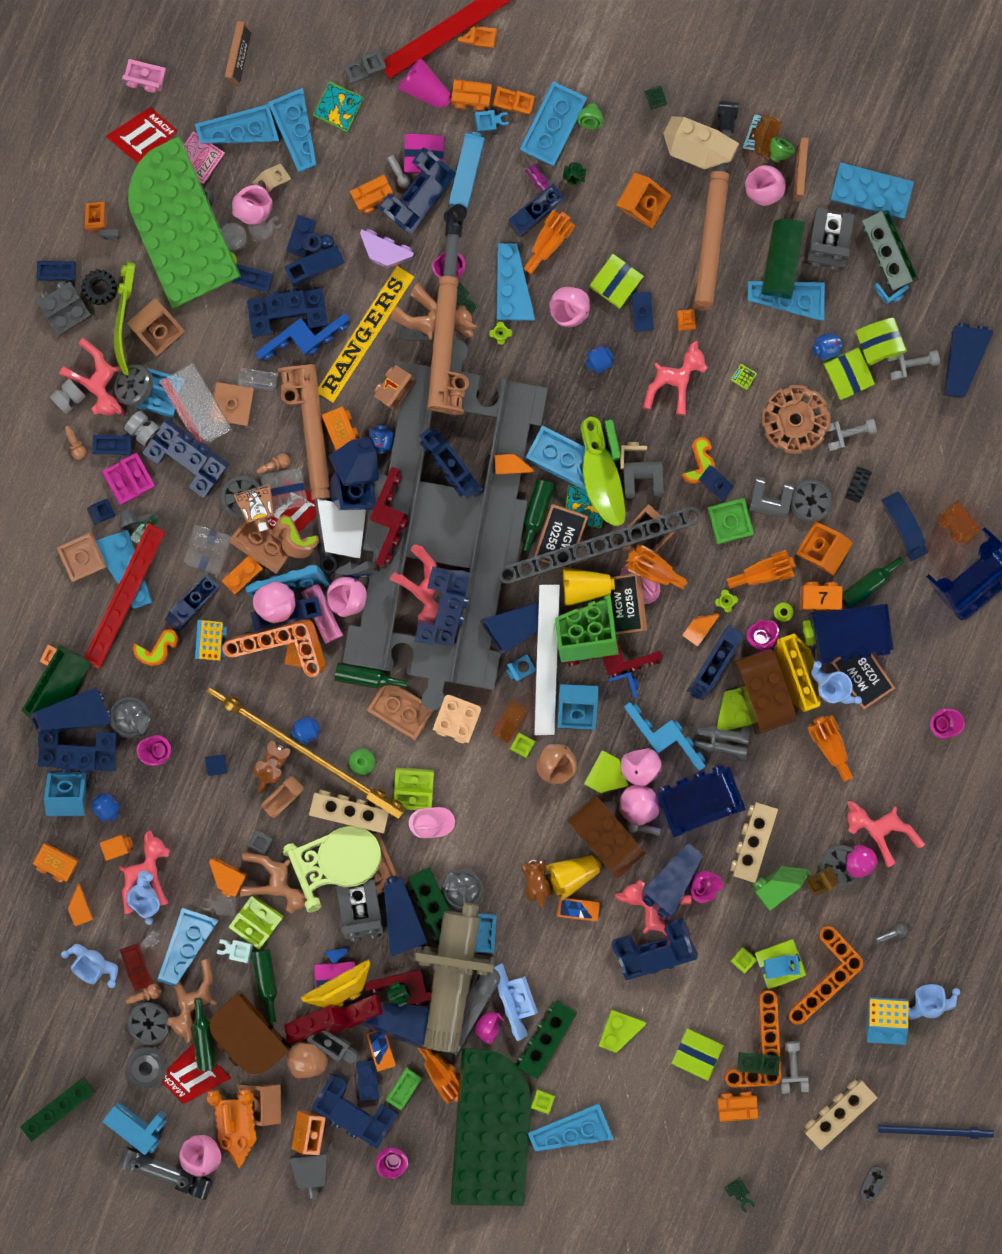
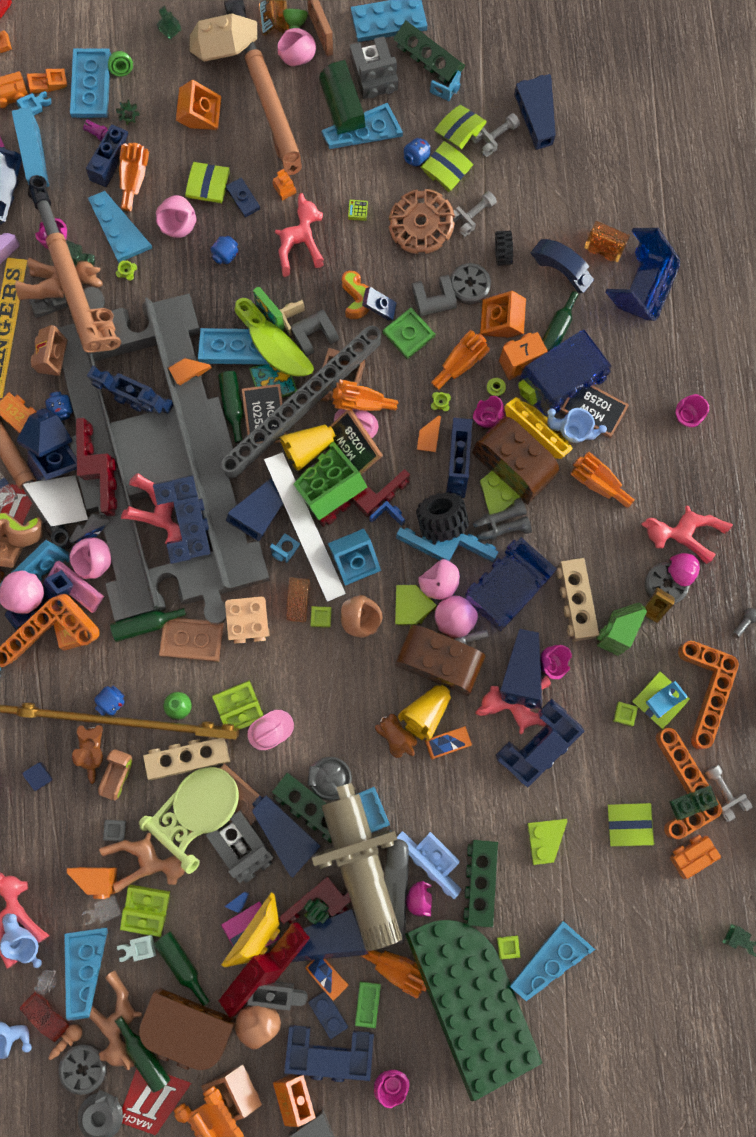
camera: 30 degrees left, 10 degrees down
(671, 723) = (442, 517): none -> black tyre

